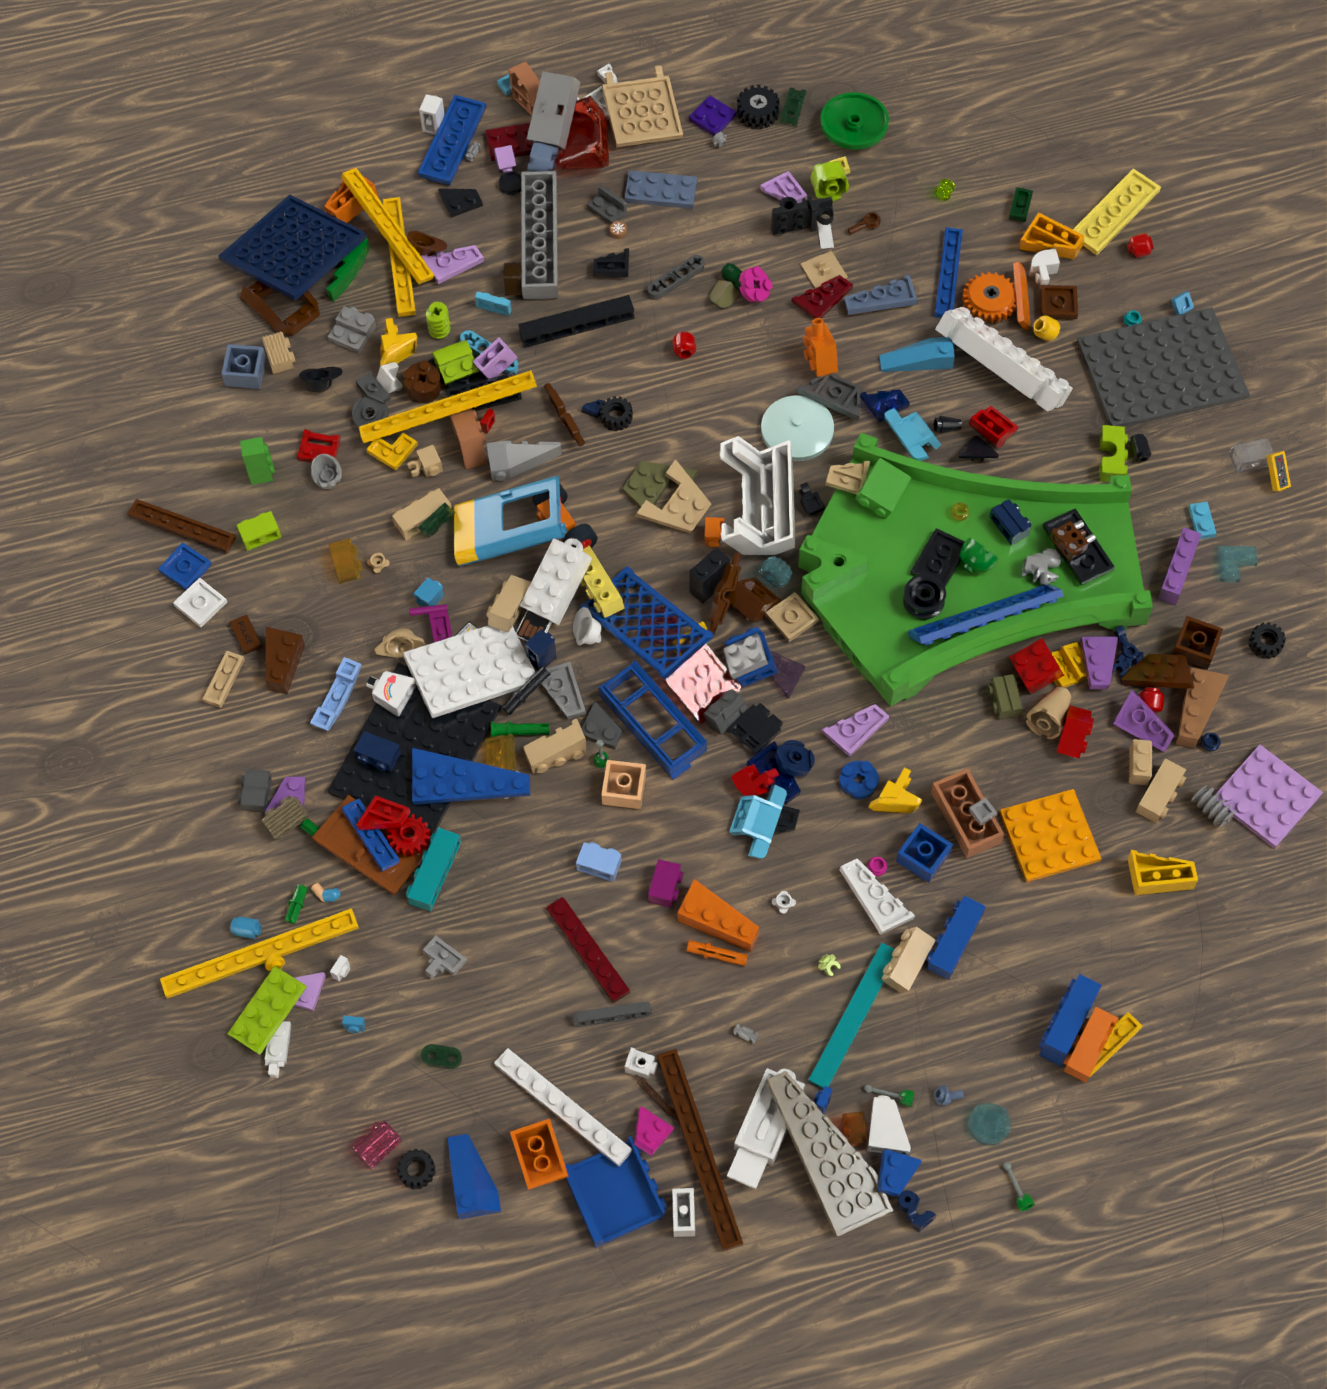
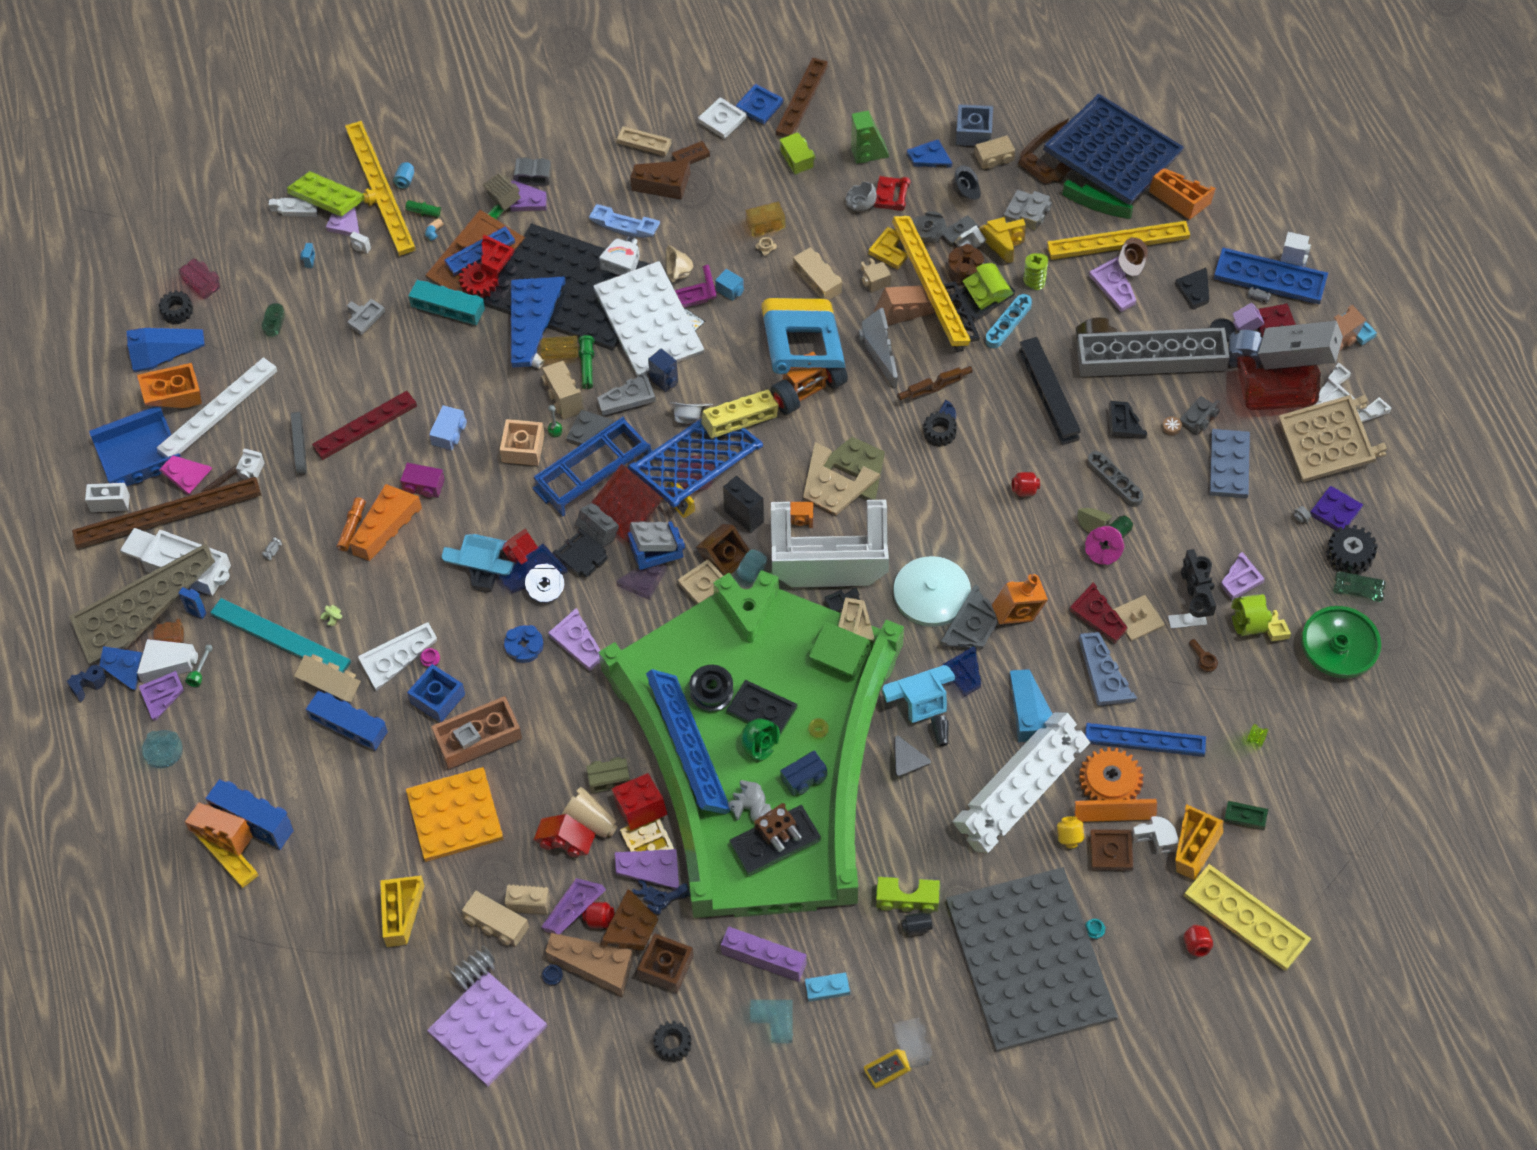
camera: 90 degrees right, 5 degrees down
(272, 412) = (929, 155): none -> blue wing
(377, 752) = (560, 250): dark blue brick -> none
(387, 226) = (1143, 218): yellow plate -> none
(436, 520) = (808, 284): clear green plate -> none
(487, 421) = (924, 321): red tile -> none
(493, 303) = (1065, 324): medium azure plate -> none
(495, 359) = (989, 316): lavender brick -> none
(507, 603) = (715, 344): tan brick -> none
(529, 687) = (621, 361): black pin -> none
(553, 587) = (729, 374): white piece -> none
(727, 583) = (729, 515): reddish brown piece -> none
(783, 896) = (398, 573): white plate -> none
(895, 797) = (496, 667): yellow piece -> none
(925, 1130) = (161, 693): none -> medium lavender wing
(944, 1097) = (193, 709): sand blue plate -> none
(993, 426) = (937, 772): red brick -> none
(1024, 1200) = (84, 773): hinge -> none
(1182, 303) = (1119, 982): dark azure plate -> none

